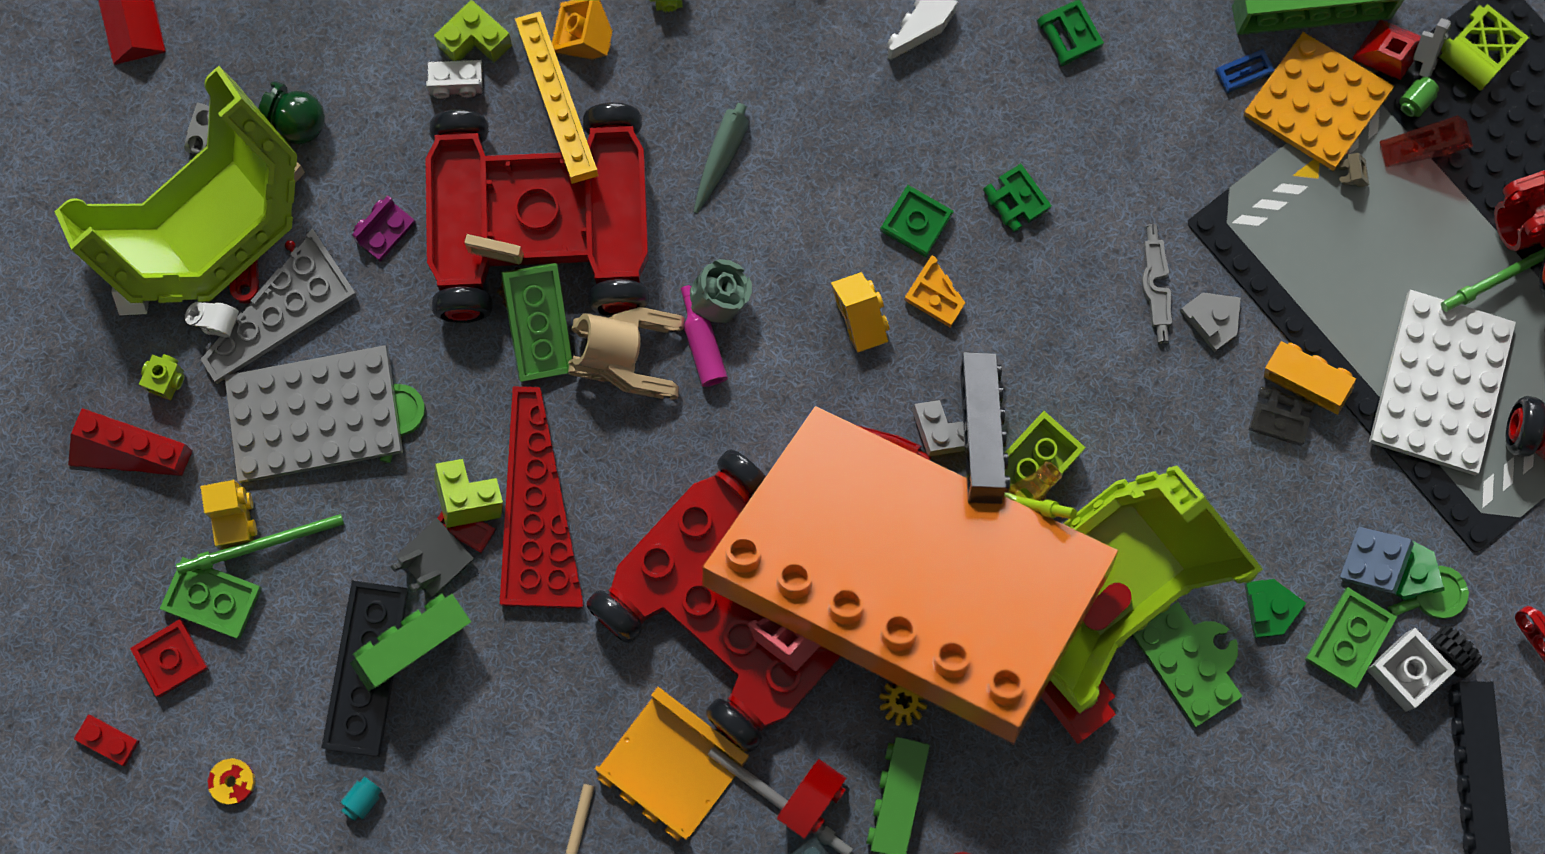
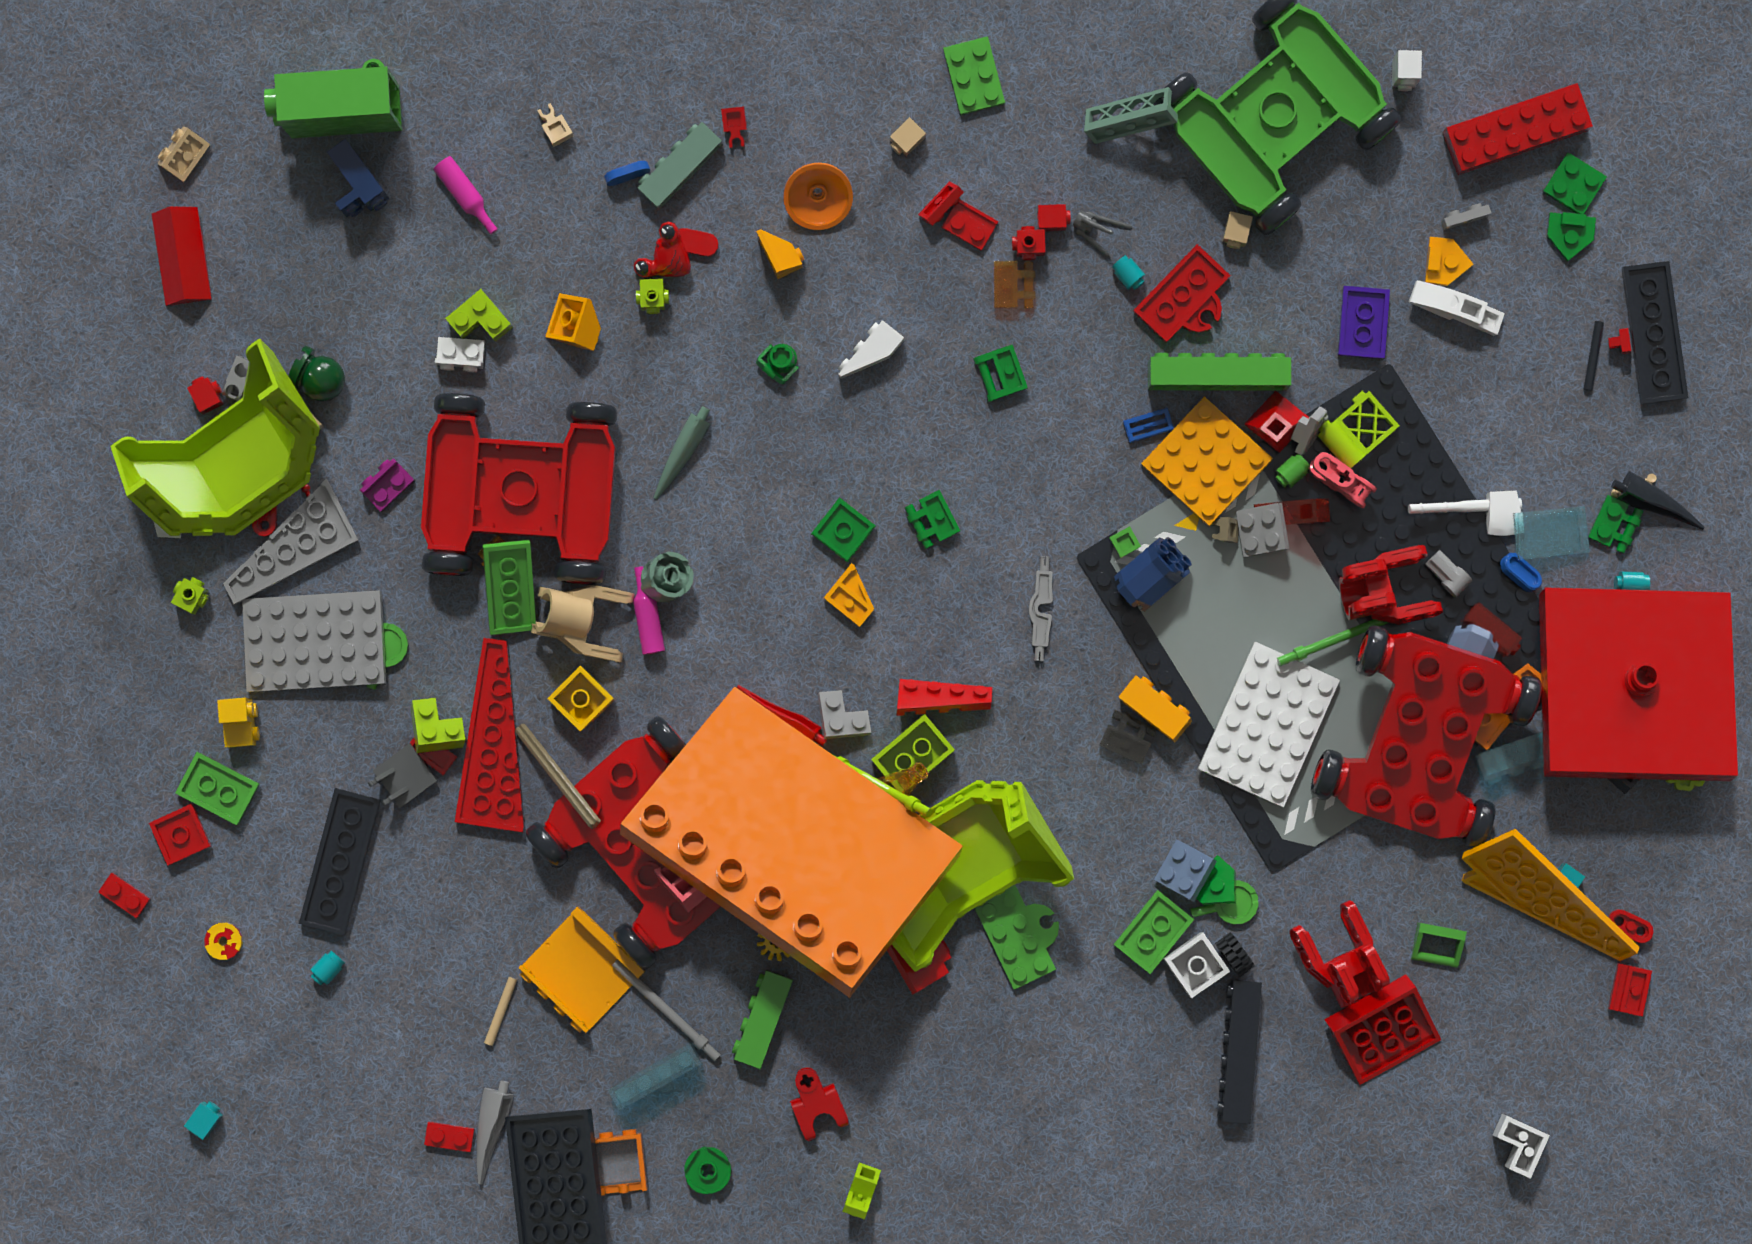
camera: 10 degrees right, 10 degrees up
(112, 444) = (148, 650): red wedge -> none
(165, 152) = (205, 394): none -> red brick
(207, 560) = (215, 758): bright green bar -> none
(212, 318) = (235, 551): white piece -> none
(405, 645) = (377, 848): bright green brick -> none
(494, 249) = (478, 525): tan tile -> none
(556, 98) = (544, 389): yellow plate -> none
(619, 532) = (557, 776): none -> dark tan axle
(635, 441) = (580, 698): none -> yellow slope
(811, 798) = (691, 1012): red brick -> none
(819, 46) = (780, 360): none -> green piece
(861, 311) = (784, 606): yellow brick -> none
(983, 428) = (870, 724): brick -> none
(1060, 392) = (933, 695): none -> wing
(1108, 606) = (955, 883): red tile -> none
(1214, 318) = (1085, 644): light grey plate -> none
(1242, 196) = (1125, 542): none -> bright green plate
(1271, 607) = (1093, 898): green plate -> none
(1282, 223) = (1152, 573): none -> dark blue brick
(1397, 164) = (1262, 529): none -> light grey plate
(1478, 95) = (1351, 484): none -> coral piece

